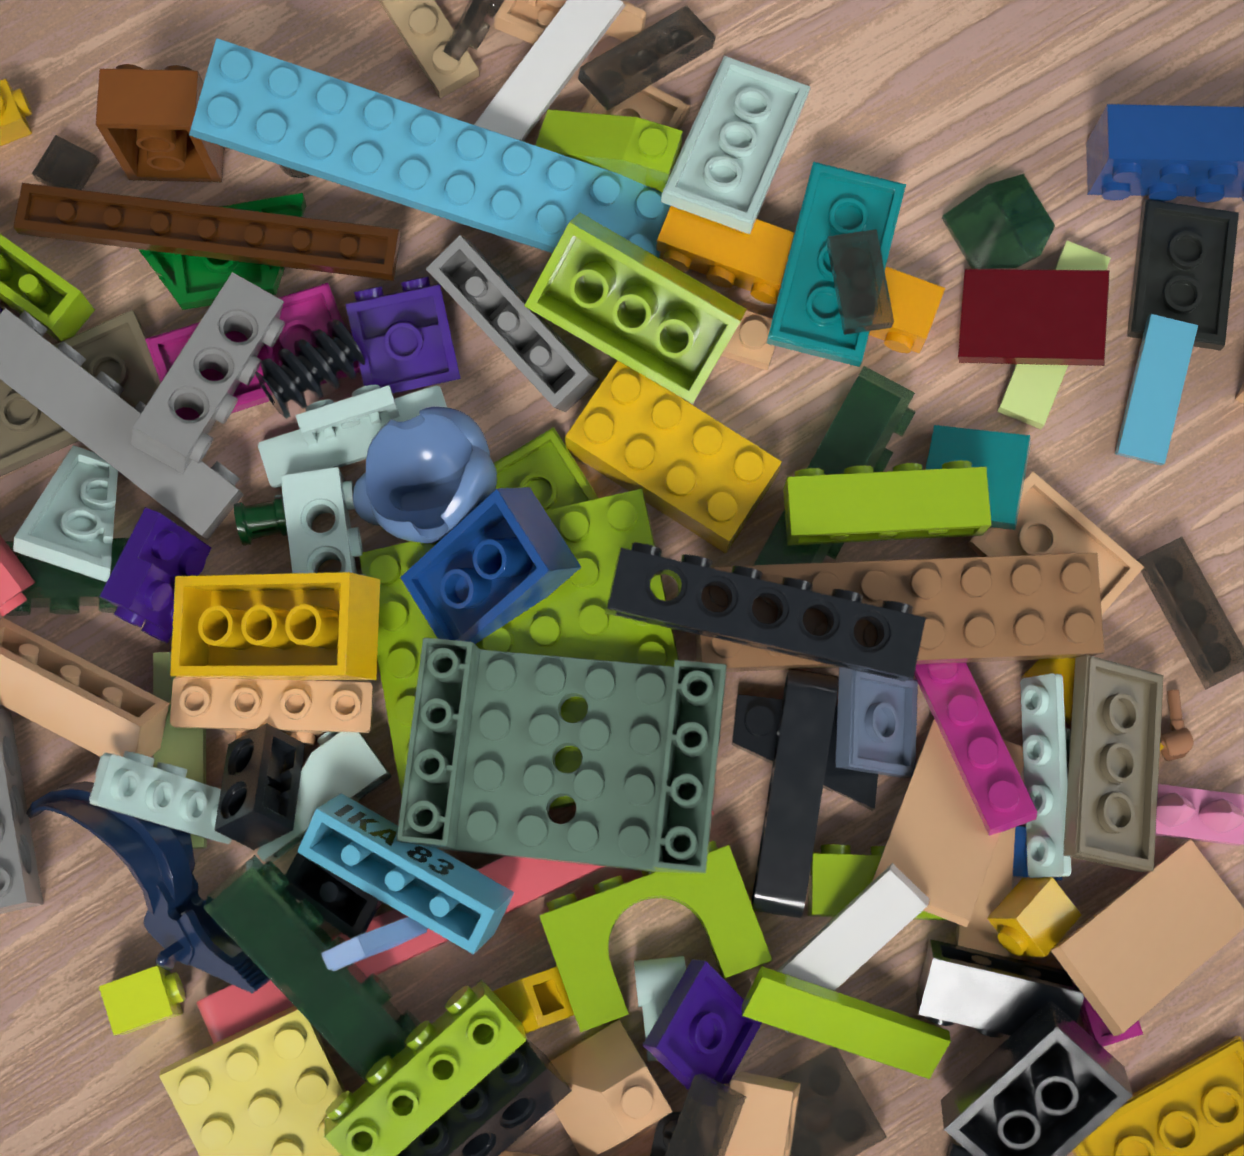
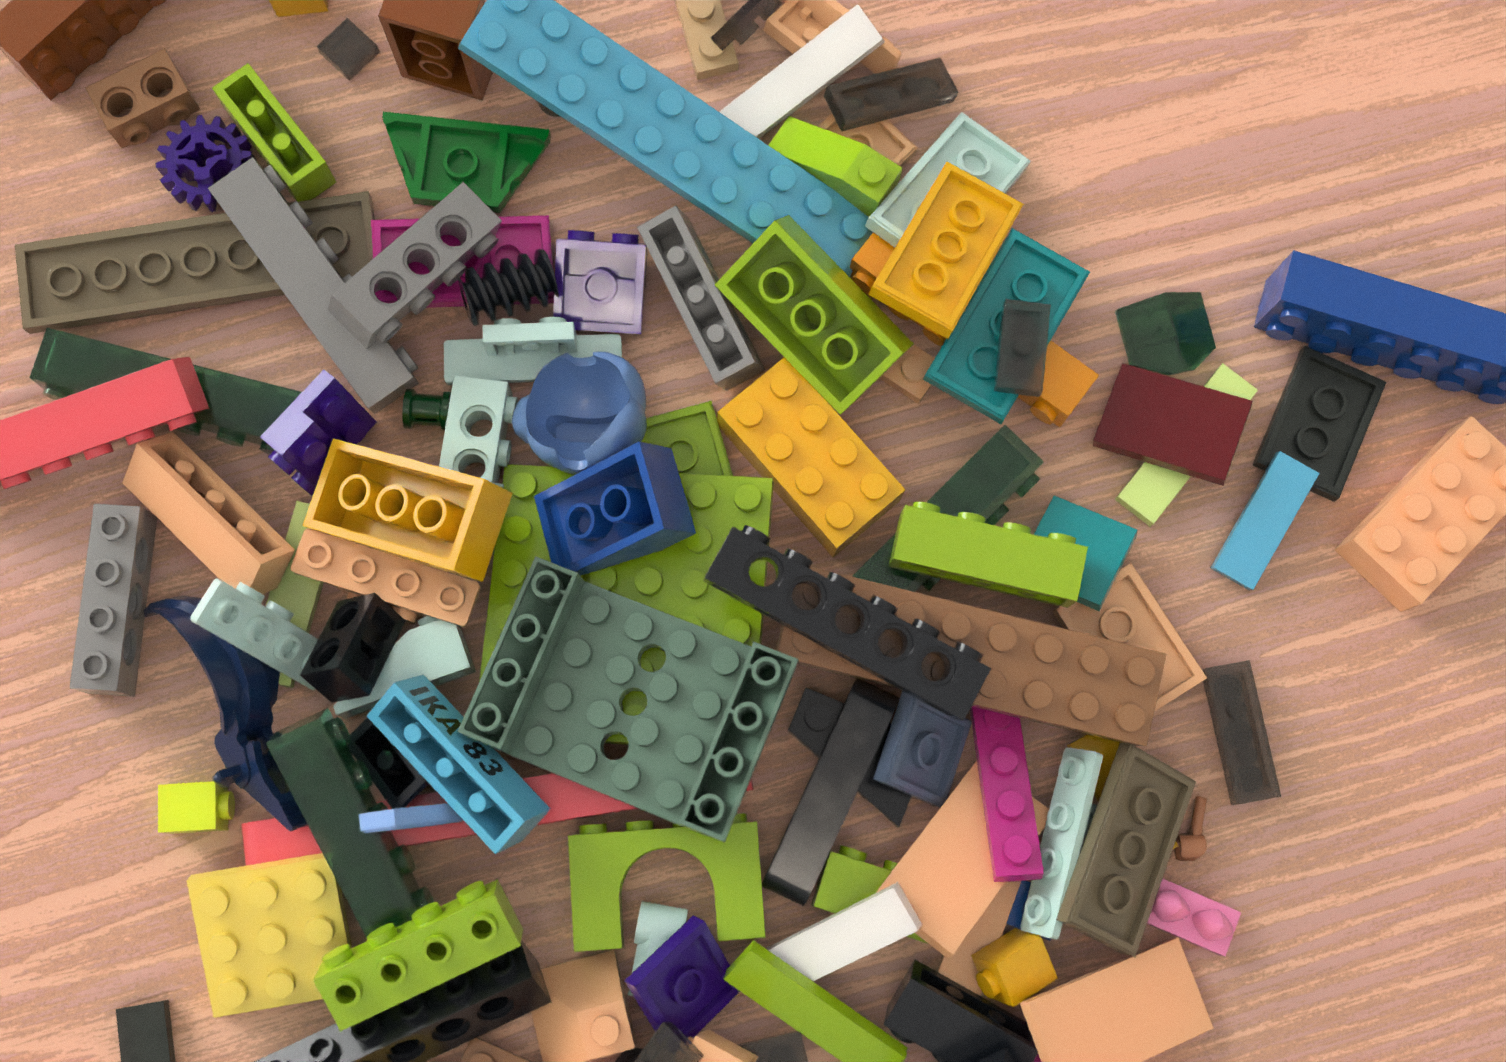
camera: 10 degrees right, 0 degrees up
(74, 517) = (260, 360): light aqua wing -> none
(207, 231) = (455, 140): reddish brown plate -> none
(537, 999) = (543, 911): yellow brick -> none
(752, 203) = (946, 250): none -> yellow tile

